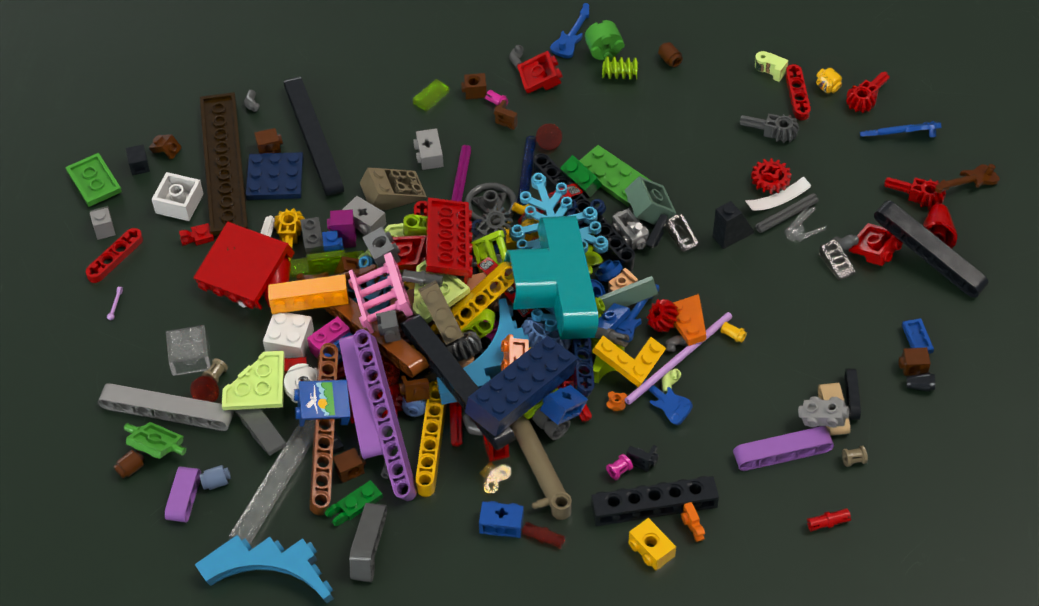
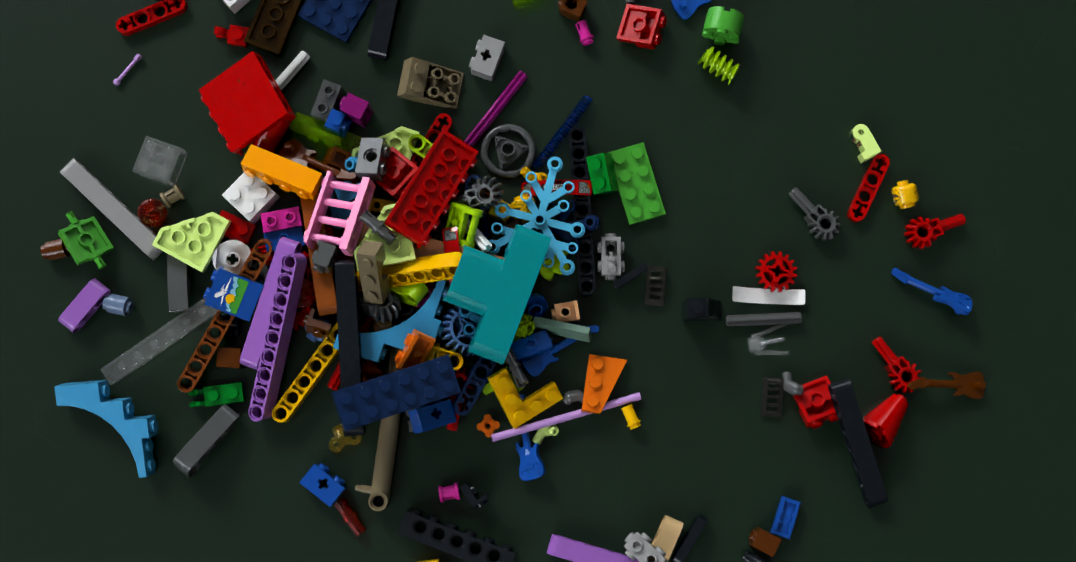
camera: 25 degrees right, 30 degrees up
(288, 226) = (310, 81): yellow gear -> none
(366, 216) = (381, 92): light grey brick -> none
(504, 116) = (580, 62): reddish brown bracket -> none
(549, 136) = (603, 108): clear red plate -> none
(608, 270) = (563, 291): blue plate -> none
(649, 200) = (643, 241): sand green brick -> none
(662, 315) = (578, 368): red gear -> none
(670, 54) = (777, 74): reddish brown brick -> none

